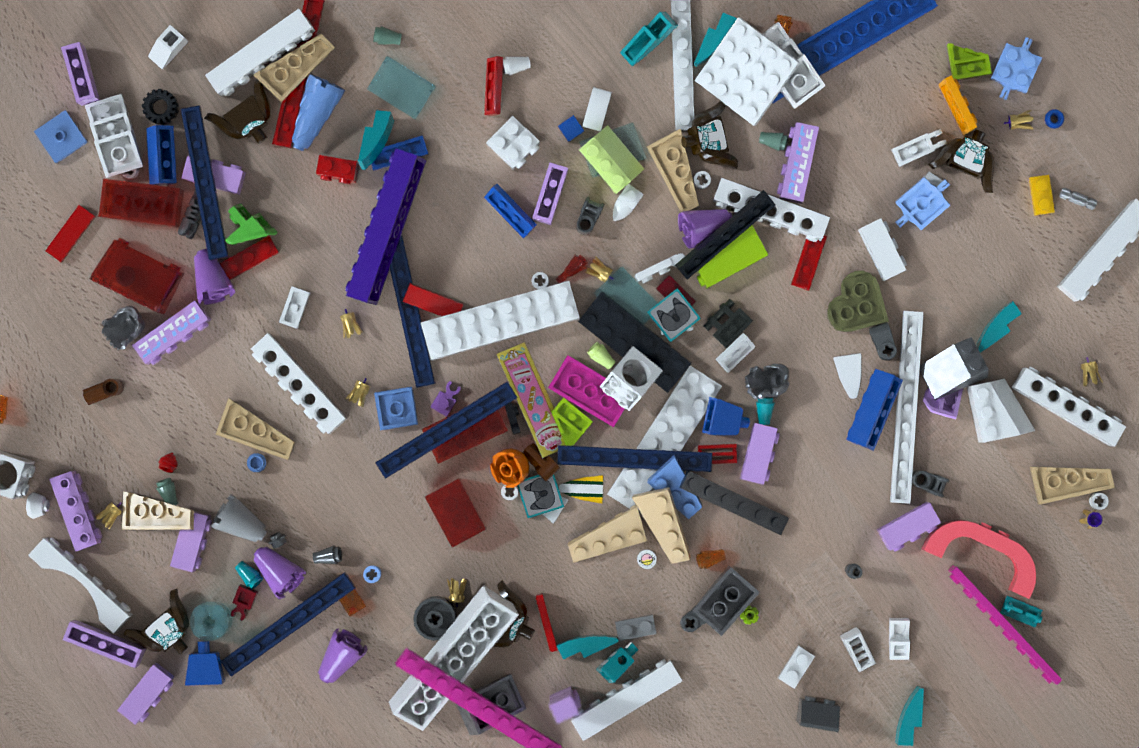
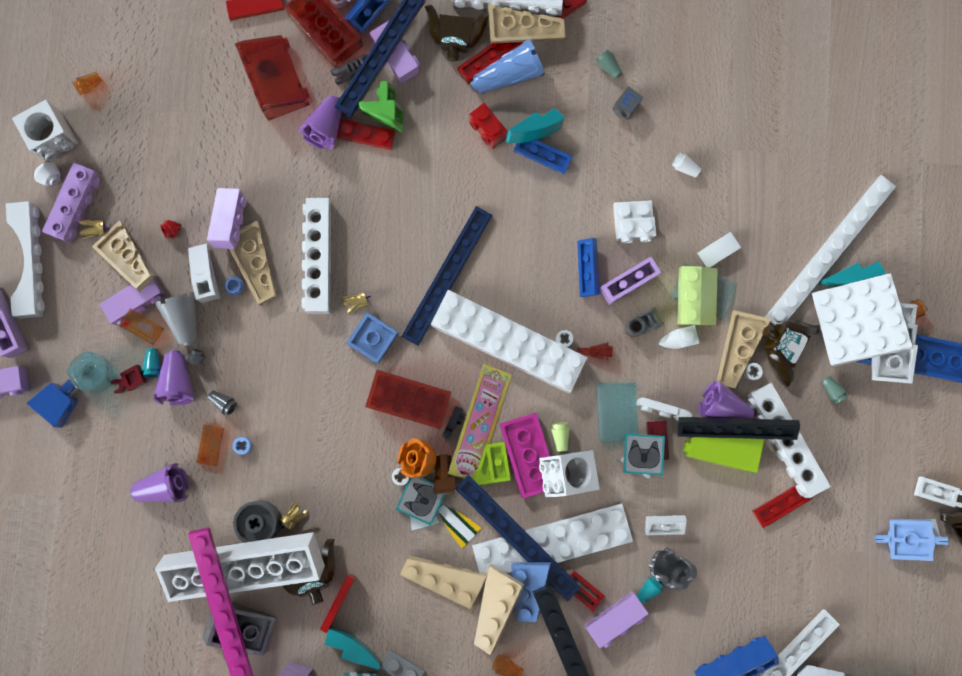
camera: 40 degrees right, 5 degrees down
(102, 391) = (172, 135): reddish brown piece -> none
(123, 327) = (229, 102): flat silver hair -> none
(165, 630) = (53, 349): dark brown torso -> none
(167, 491) = (150, 249): sand green cone -> none
(171, 333) = (260, 137): lavender brick -> none
(205, 417) = (226, 218): none -> brick
(216, 554) = (141, 326): none -> clear orange tile
(224, 474) = (203, 274): none -> white slope
(288, 624) = (146, 427): dark blue tile -> none
(294, 307) = (365, 198): white plate -> none
(348, 323) = (396, 241): pearl gold piece -> none
(385, 227) = (486, 196): dark purple brick -> none
(401, 87) = (587, 110): clear light blue piece -> none
(428, 56) = (627, 103): none -> dark grey brick
(431, 301) = (470, 281): red tile -> none
(444, 402) = (413, 365): medium lavender plate -> none
(446, 430) = (394, 386): dark blue tile -> none
(455, 512) = (345, 456): clear red brick -> none
(493, 86) = (656, 166): red tile -> none
(571, 128) = (686, 247): blue tile -> none
(600, 270) = (617, 374): pearl gold piece -> none
(622, 331) = (594, 432): black plate -> none
(646, 559) = (457, 623): tile -> none
(648, 38) = (804, 232): teal slope -> none
(724, 418) = (613, 568): blue torso -> none
(732, 327) = (680, 503): pearl dark grey plate -> none
(798, 162) = (839, 423): lavender brick -> none
(849, 373) = (739, 619): white sticker -> none
(858, 304) = (793, 572): olive plate -> none
(882, 249) = (848, 547): white brick -> none
(882, 337) = (789, 616): dark grey piece -> none

